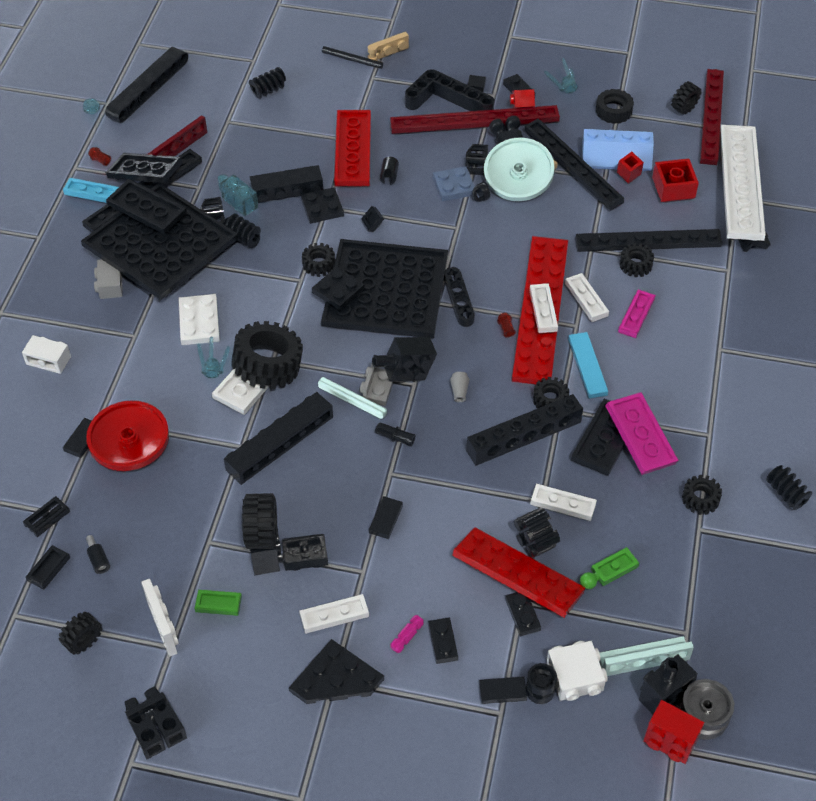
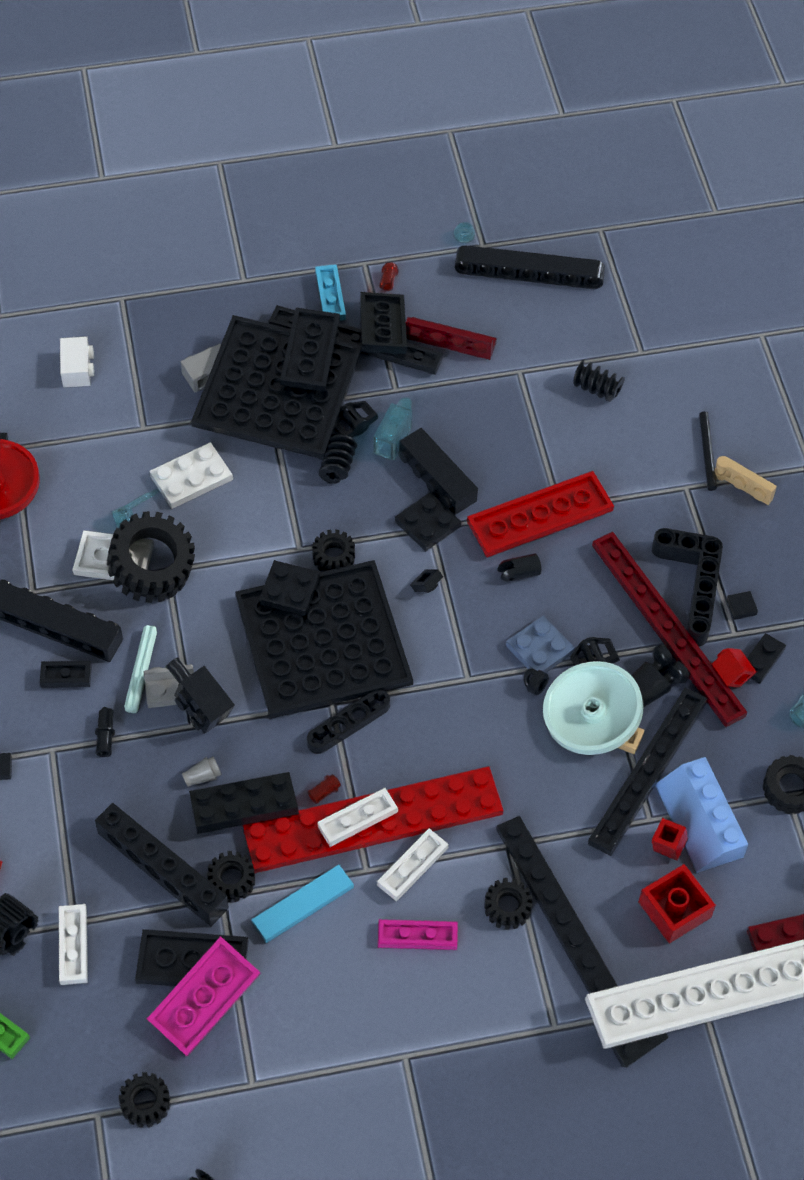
camera: 65 degrees right, 5 degrees up
(332, 443) = (65, 674): none -> black plate
(496, 370) = (243, 802): none -> black plate

